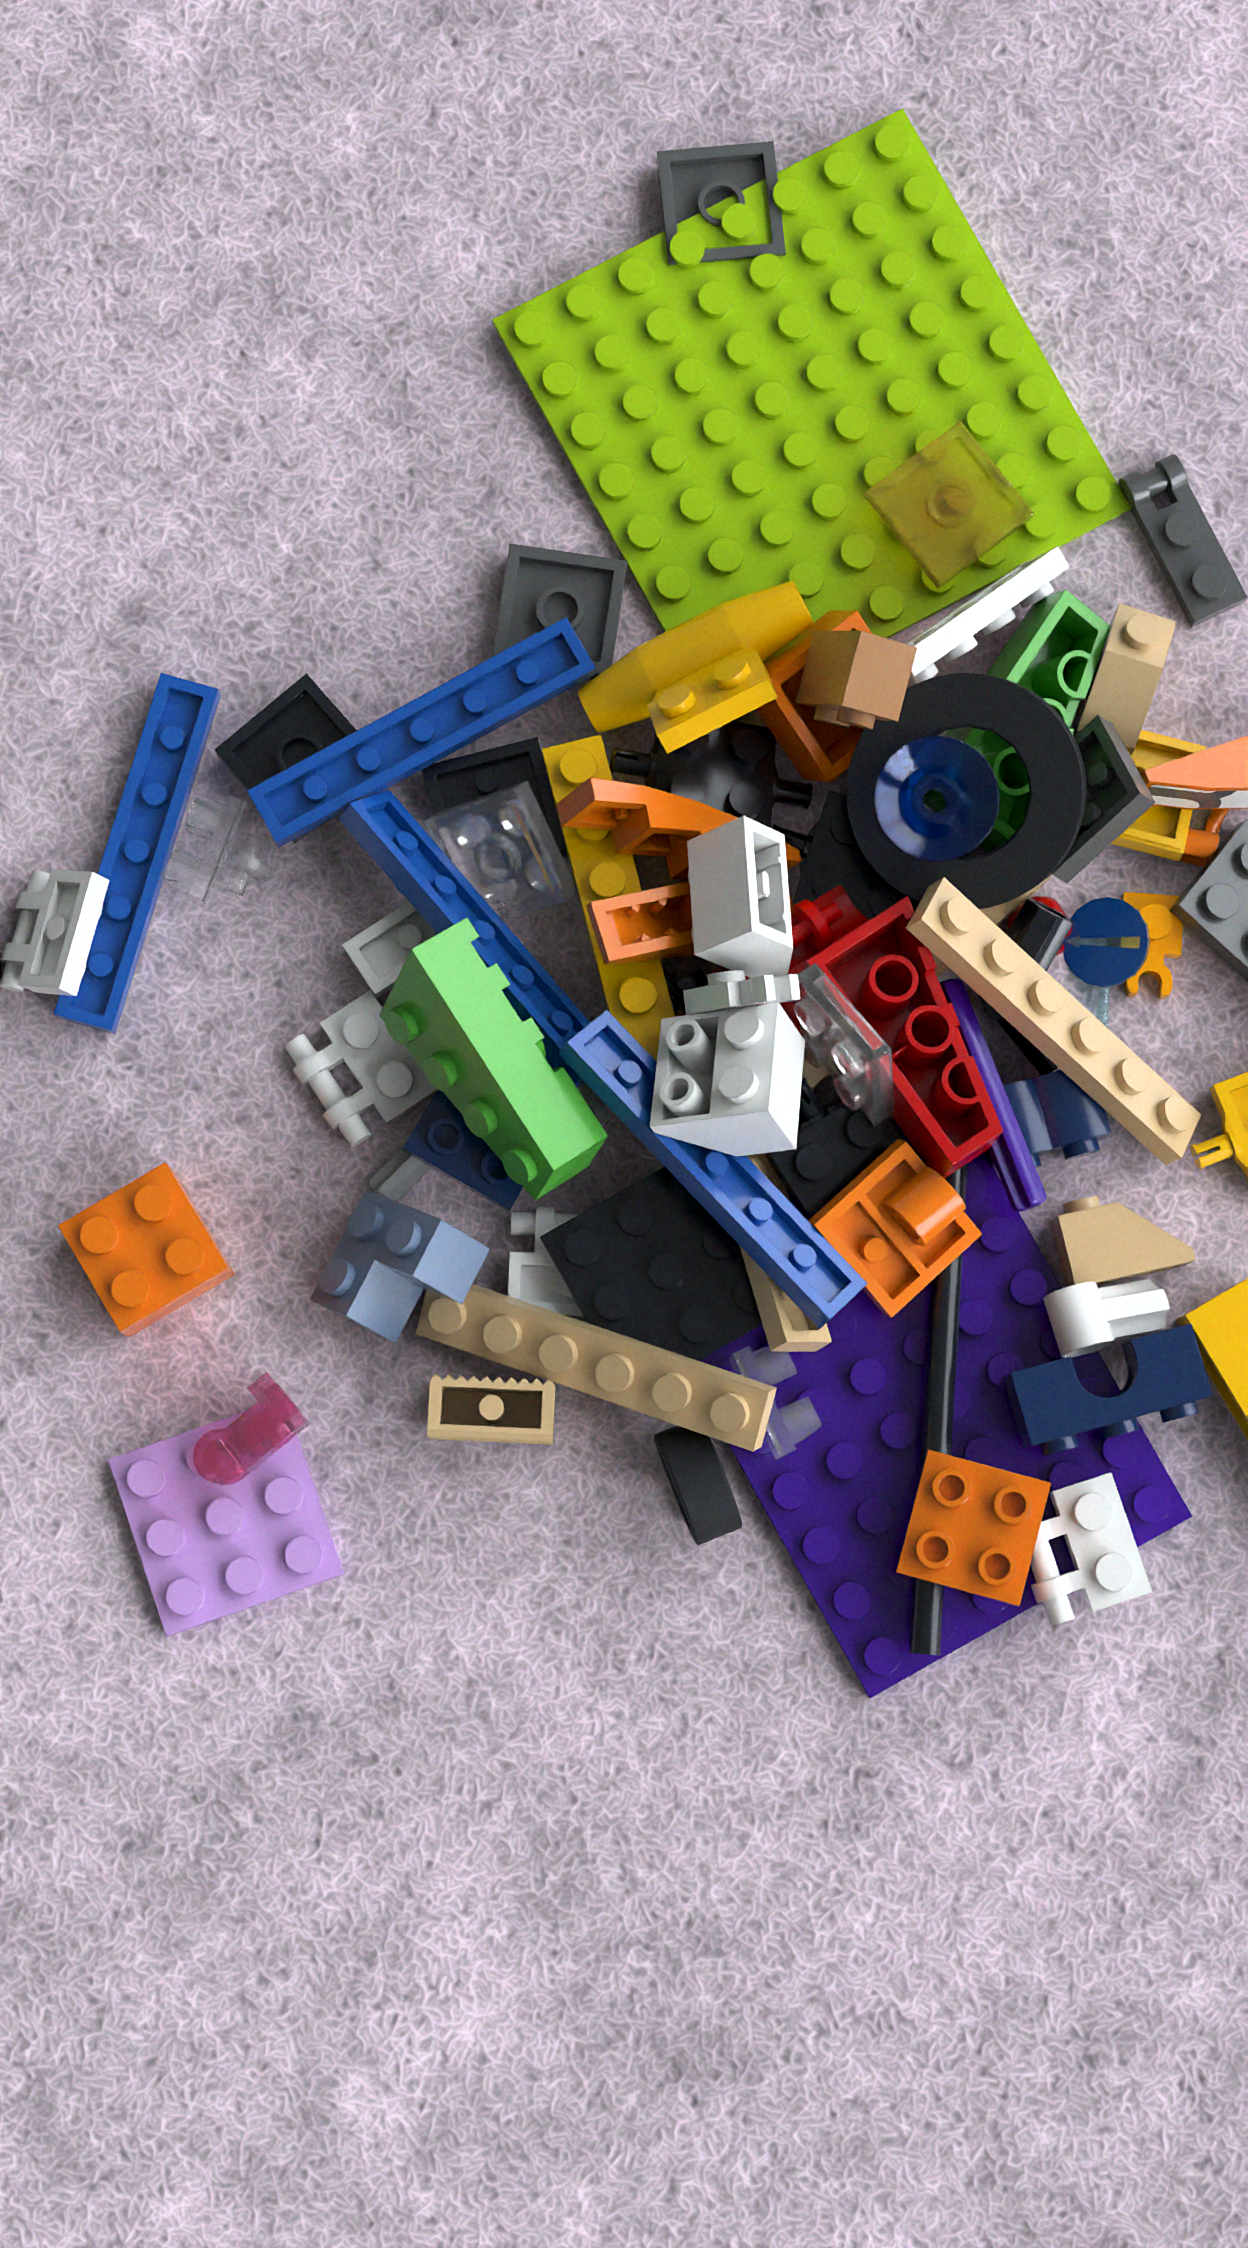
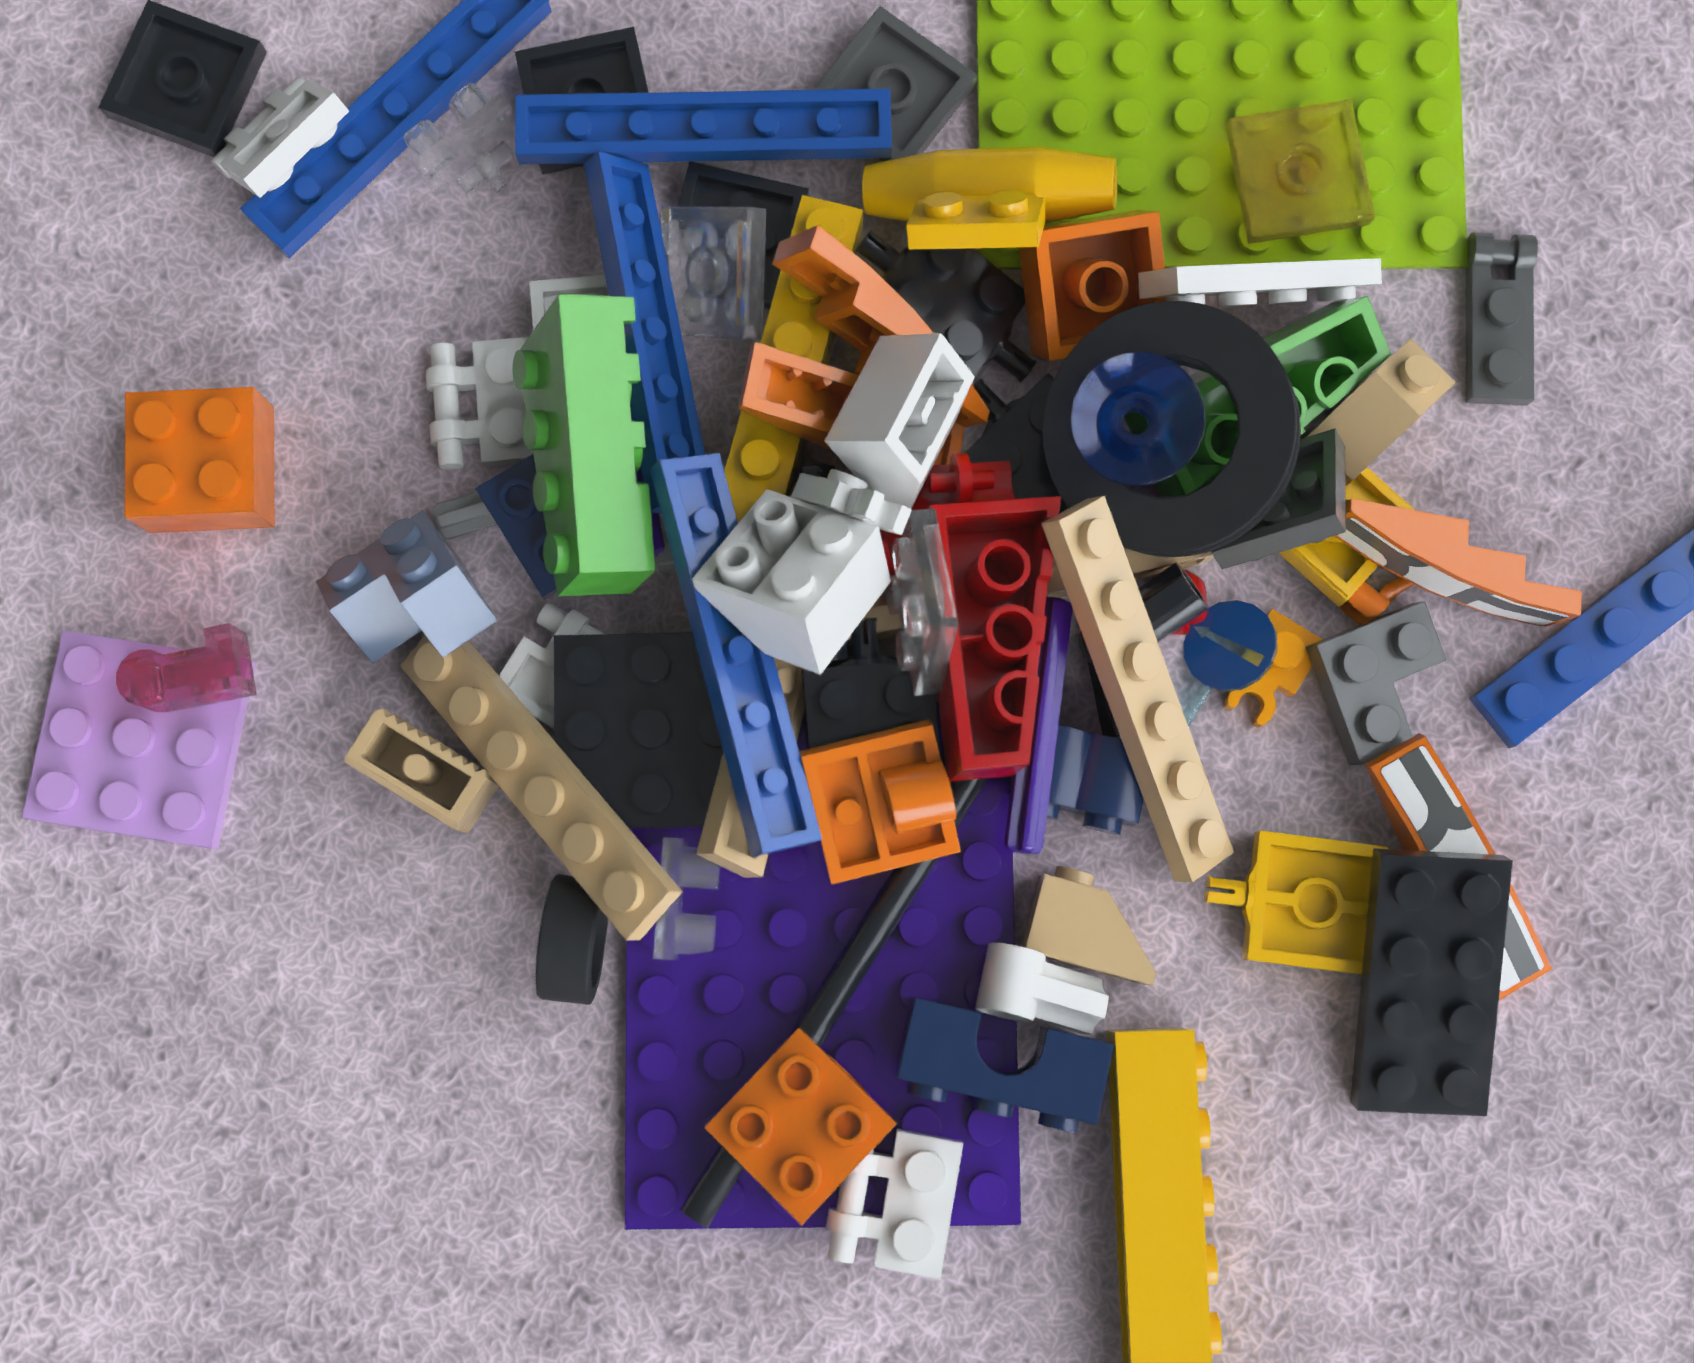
camera: 30 degrees right, 0 degrees up
(855, 678) = (1122, 264): medium nougat brick -> none

